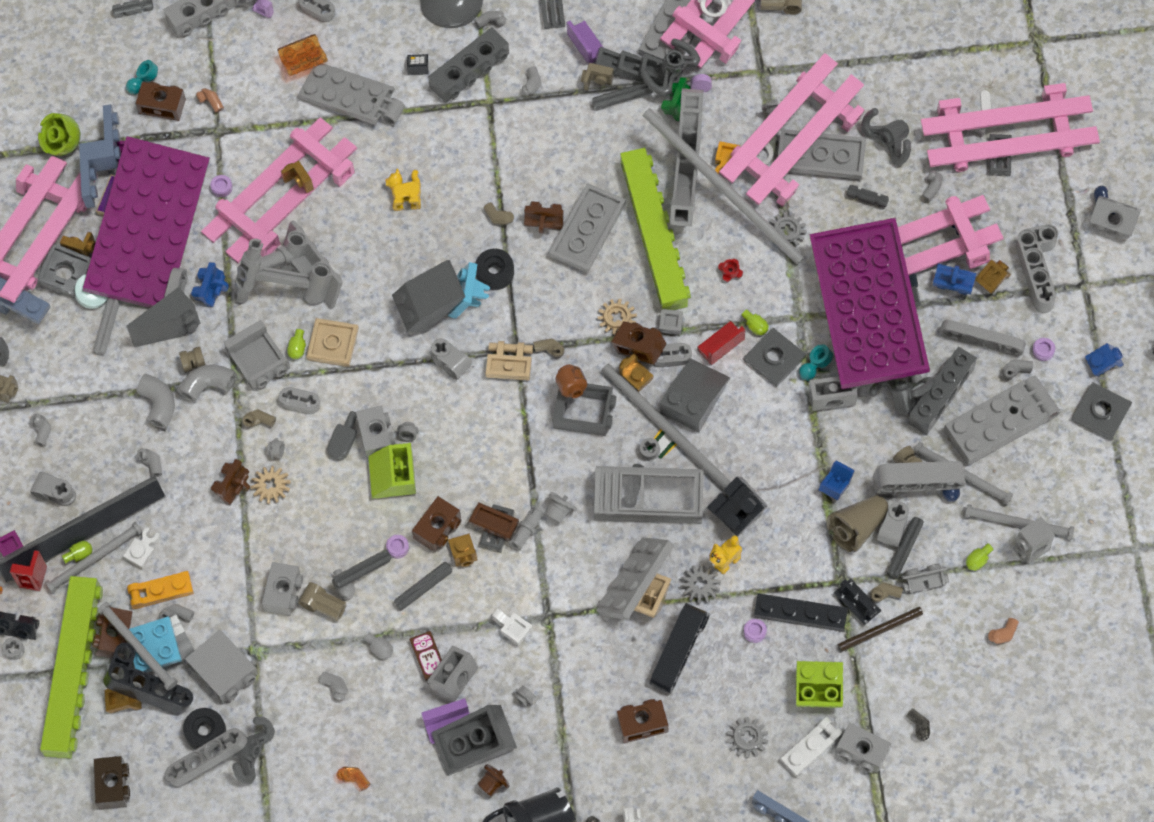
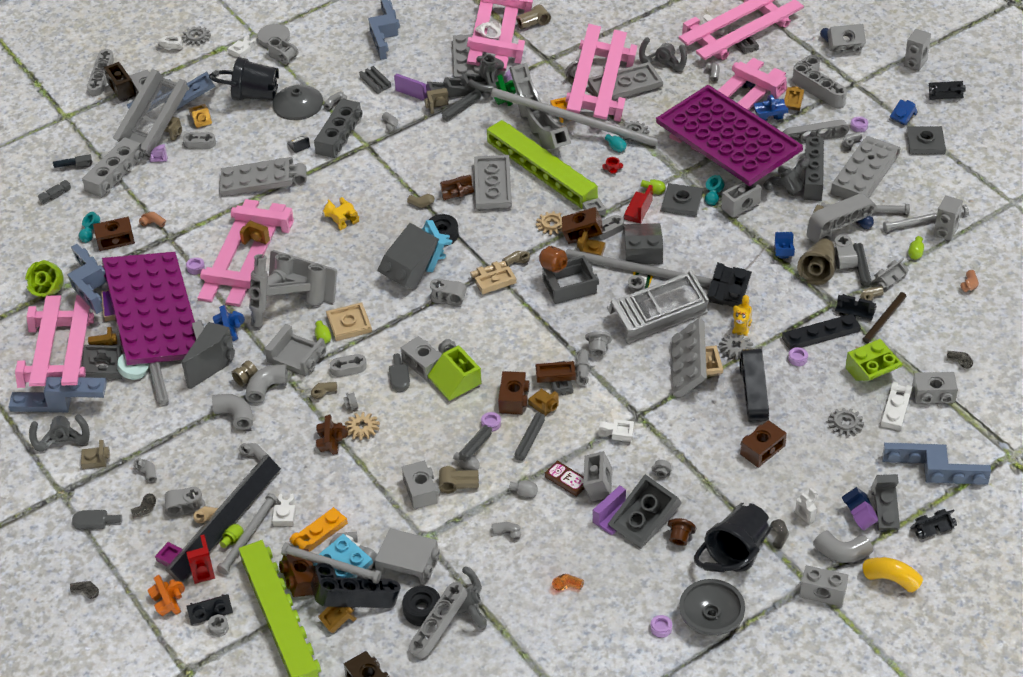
camera: 30 degrees left, 20 degrees down
(18, 473) = (146, 506): none -> clear smoke arm
(66, 513) = (203, 514): none -> tan arm
(302, 55) = (207, 167): clear orange bracket -> none
(754, 239) = (616, 143): none -> teal cylinder
(867, 196) = (674, 92): dark grey axle -> none

